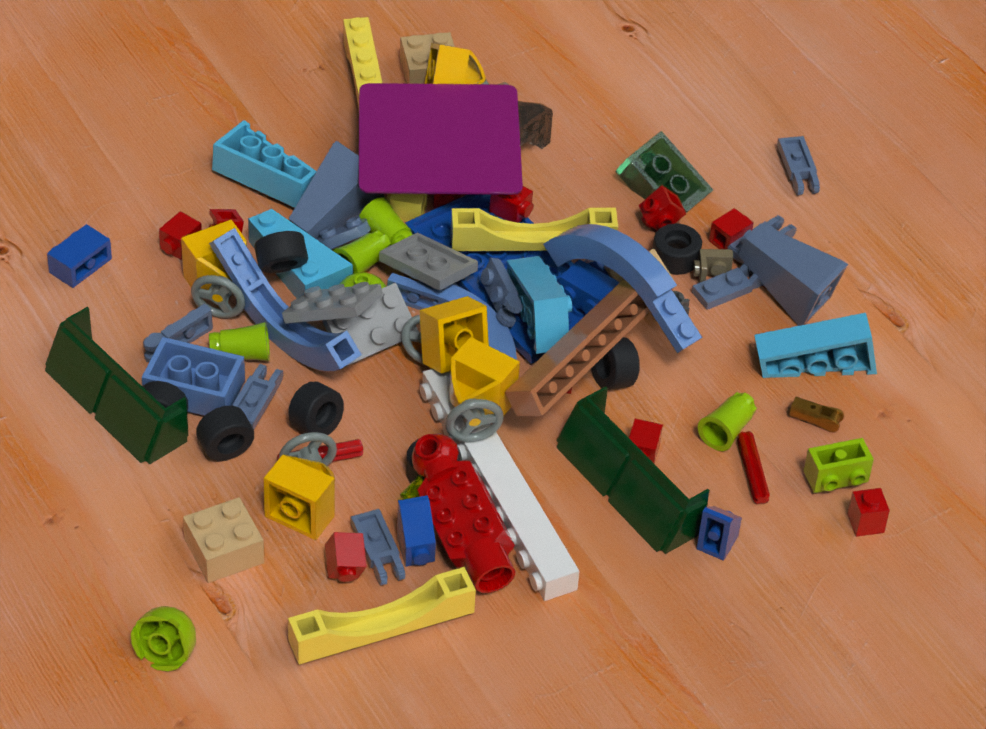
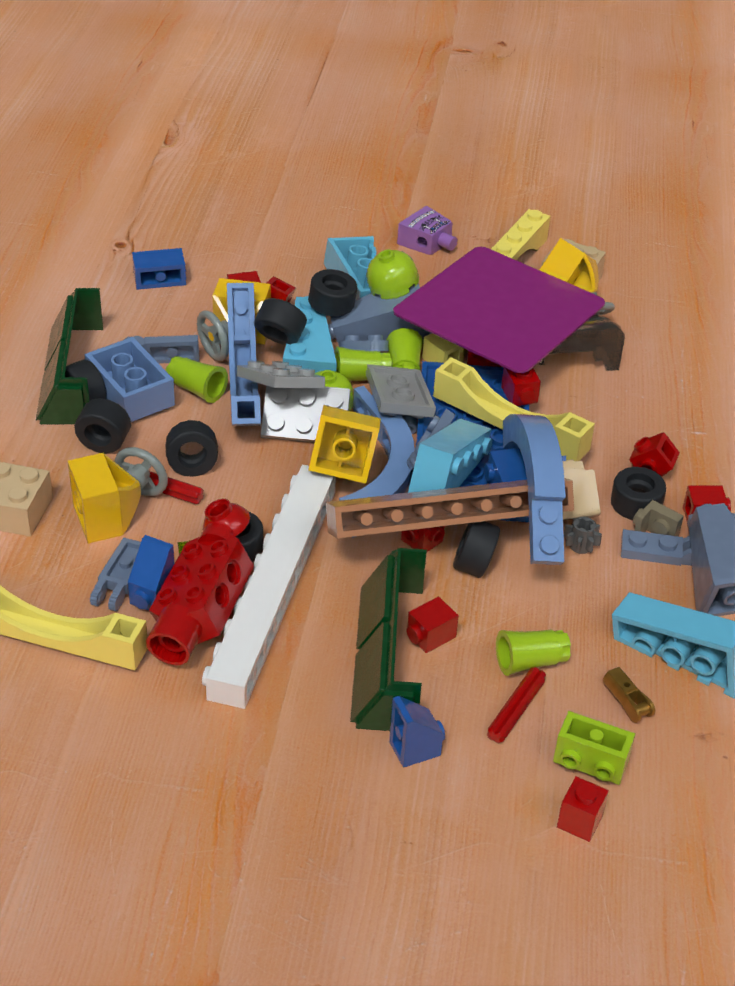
camera: 40 degrees right, 5 degrees down
(258, 393) = (164, 418): sand blue hinge -> none
(270, 88) = (426, 232): none -> medium lavender torso
(288, 198) = (332, 292): none -> black tyre
(323, 154) = (391, 274): none -> lime cylinder
(345, 556) = (79, 561): red brick -> none
(478, 389) = (311, 481): yellow piece -> none
(663, 164) = (693, 431): clear green slope -> none

